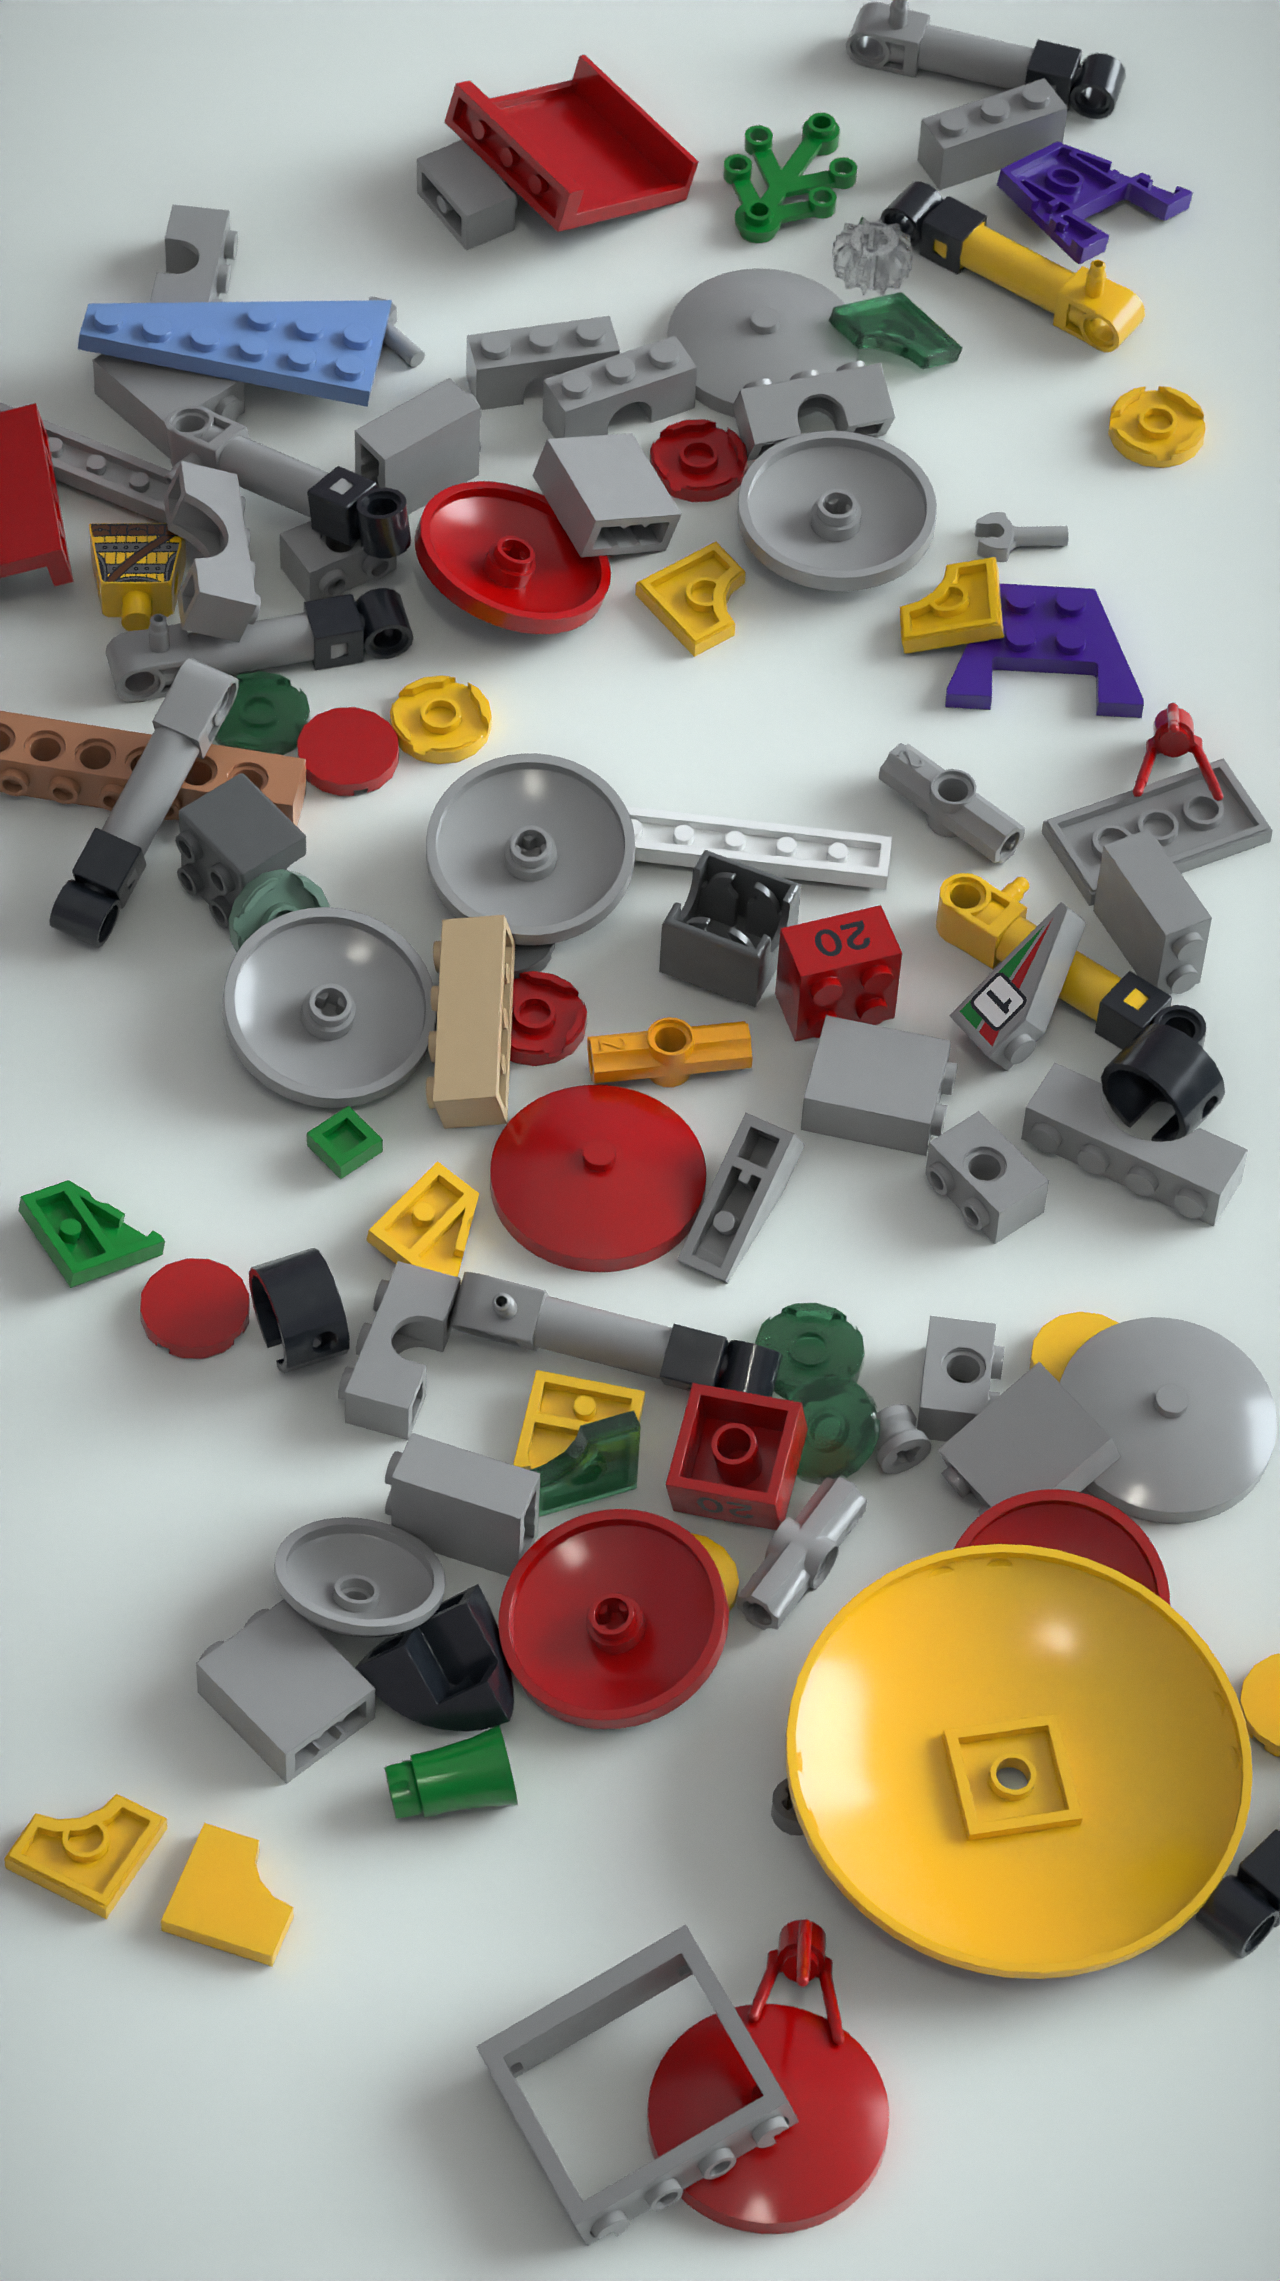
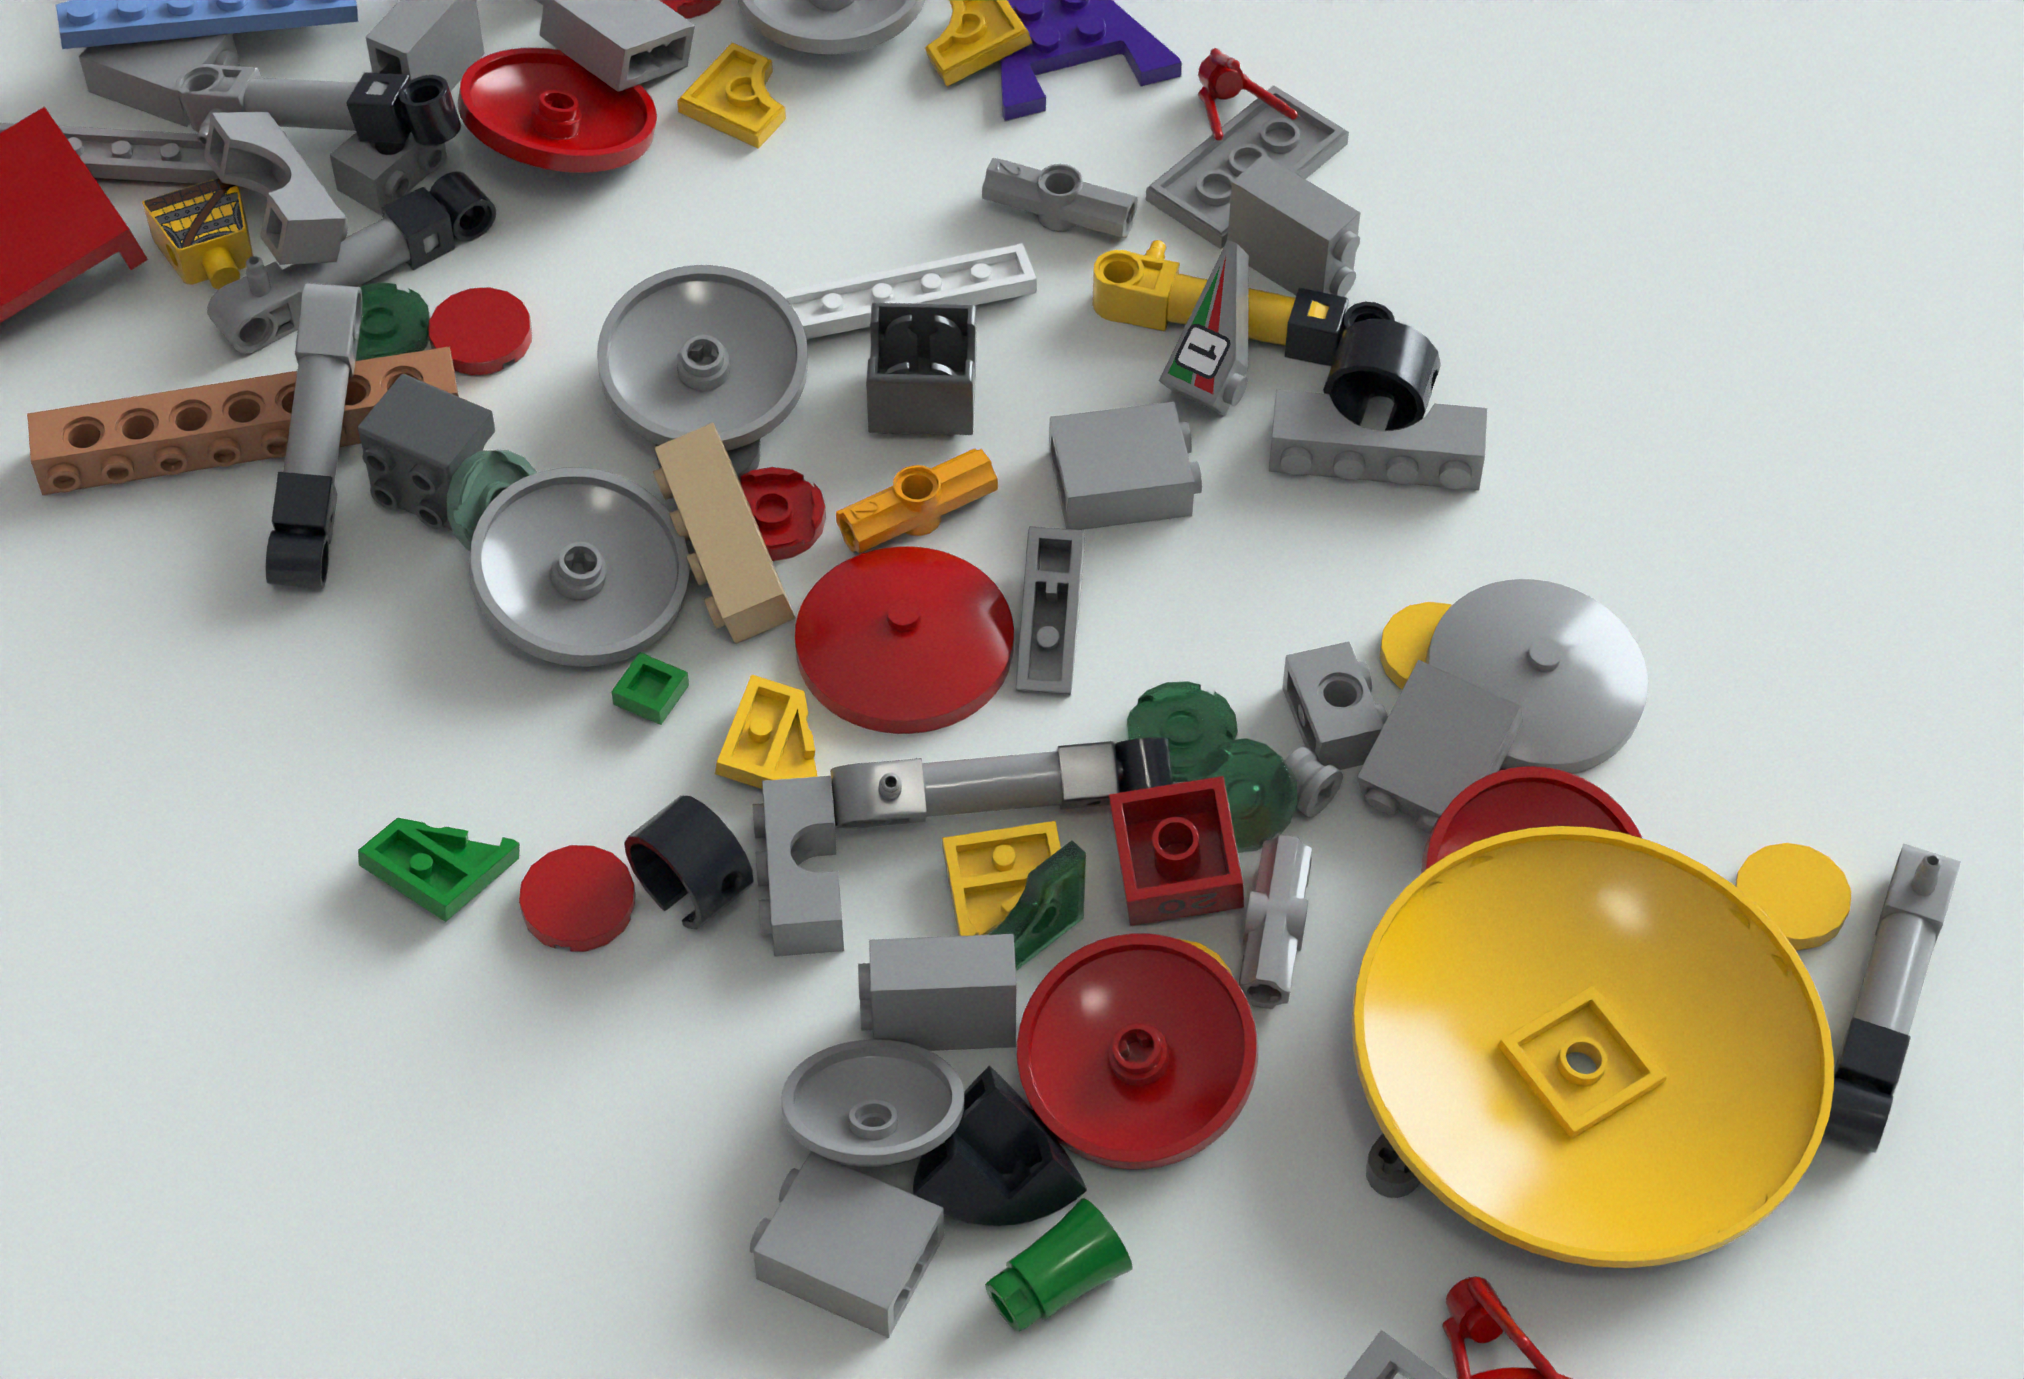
camera: 20 degrees left, 0 degrees up
(441, 720) = (554, 275): yellow tile -> none
(838, 969) = (1040, 372): red brick -> none
(978, 1152) = (1263, 514): light grey brick -> none

